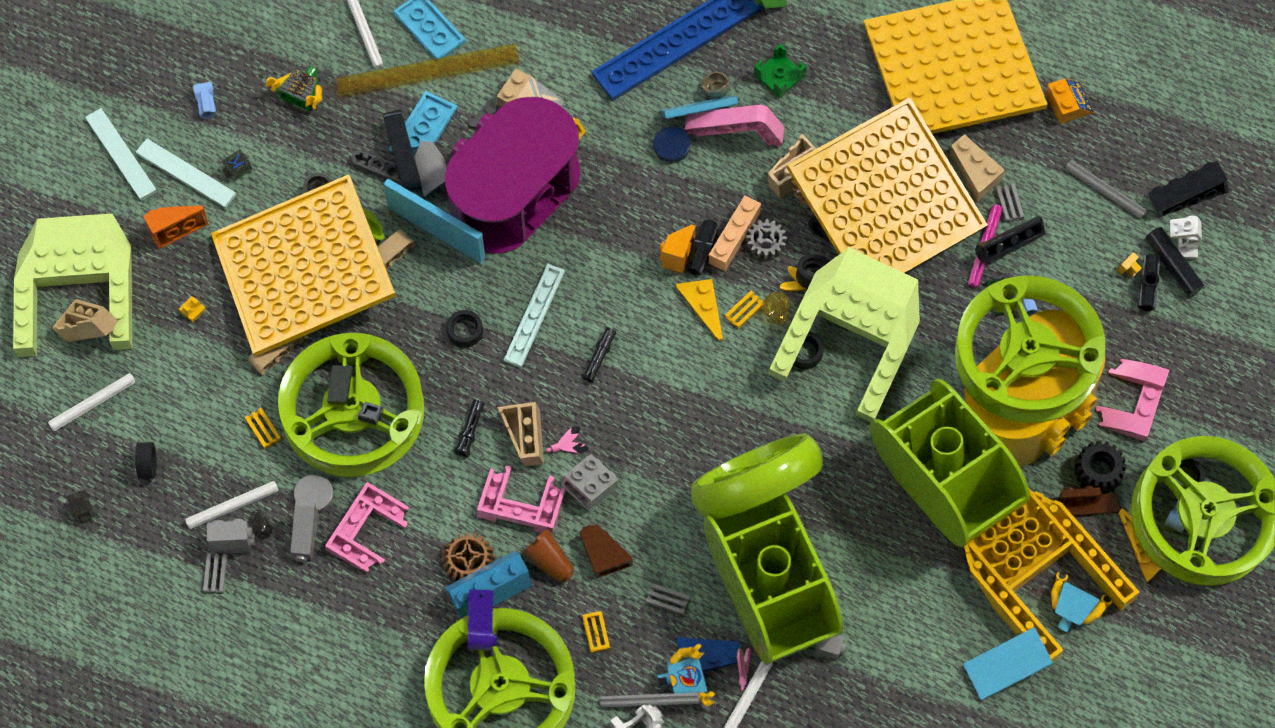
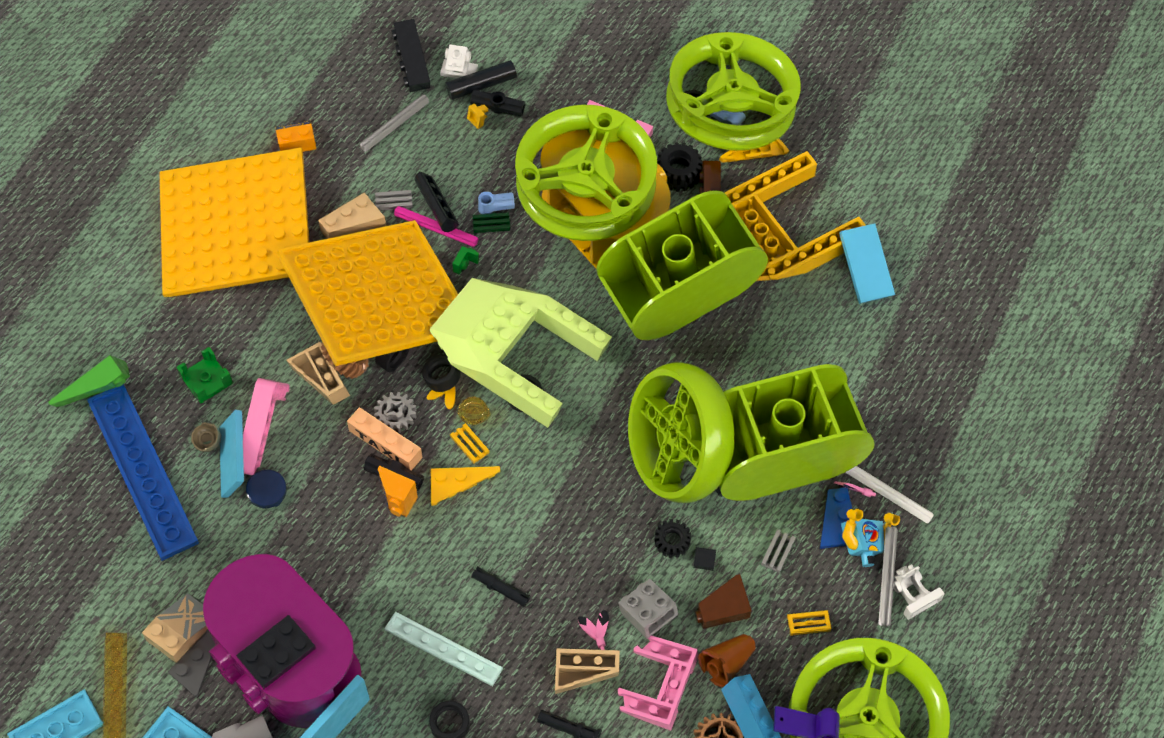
camera: 85 degrees left, 5 degrees down
(487, 159) = (276, 651): none -> black plate
(650, 532) = (704, 558): none -> black tile
(660, 490) = (672, 527): none -> black tyre
(946, 273) = (463, 257): none -> green bracket
(1075, 604) = (809, 206): medium azure torso -> none

